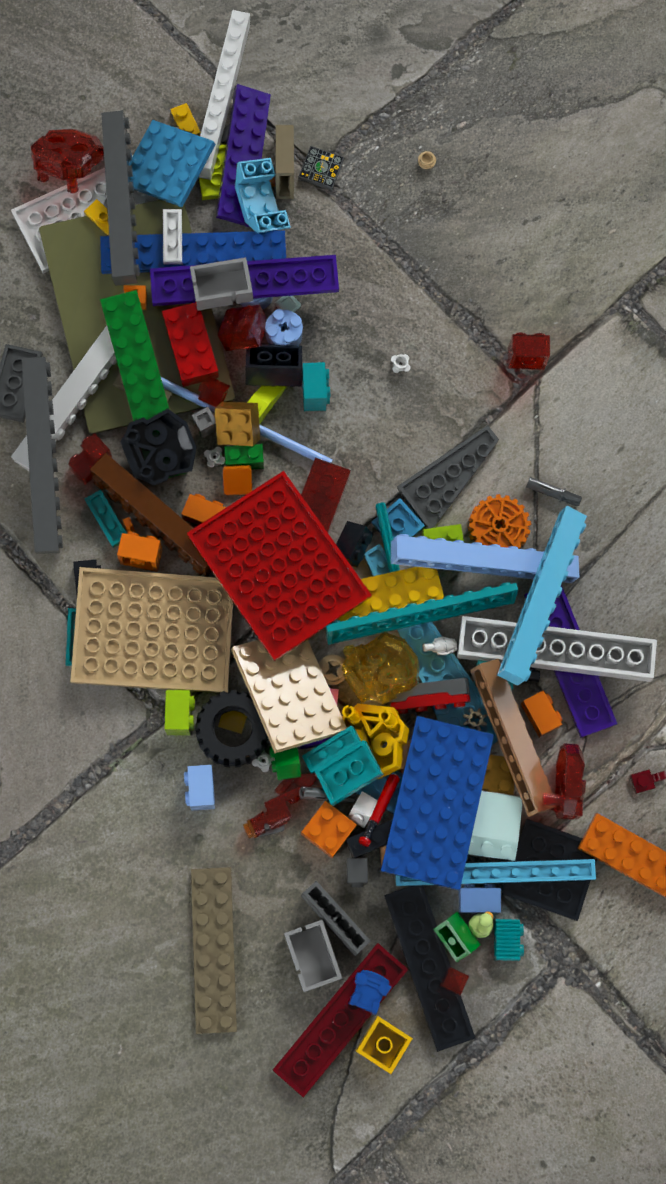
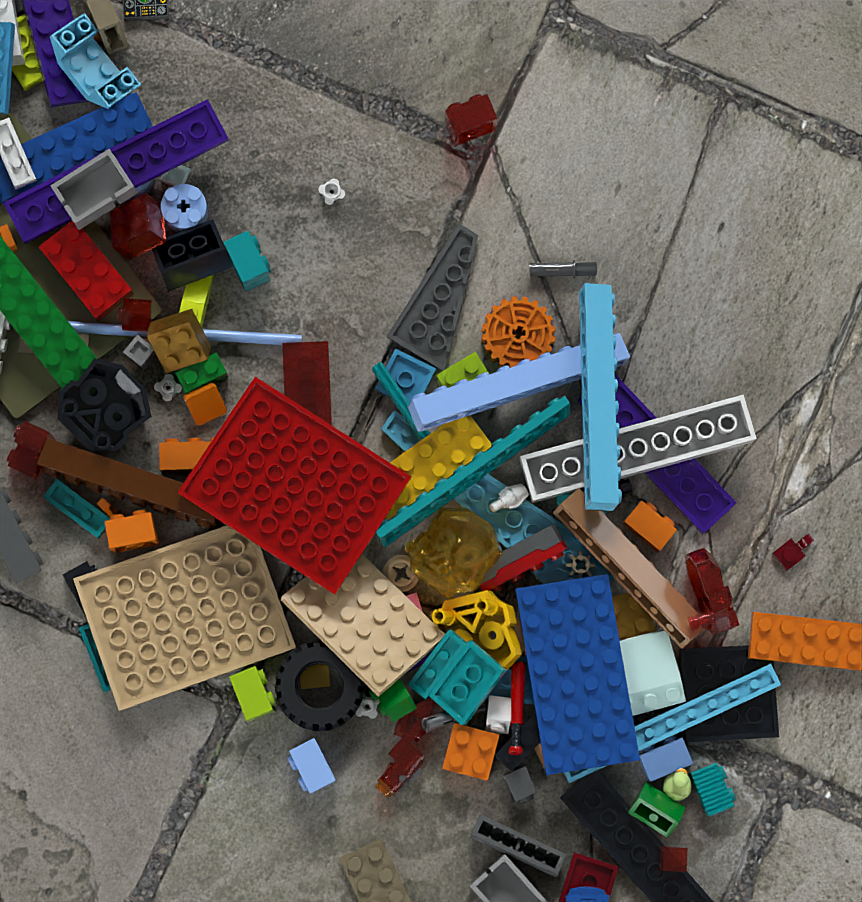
camera: 20 degrees left, 5 degrees up
(354, 542) = (365, 421): black brick -> none

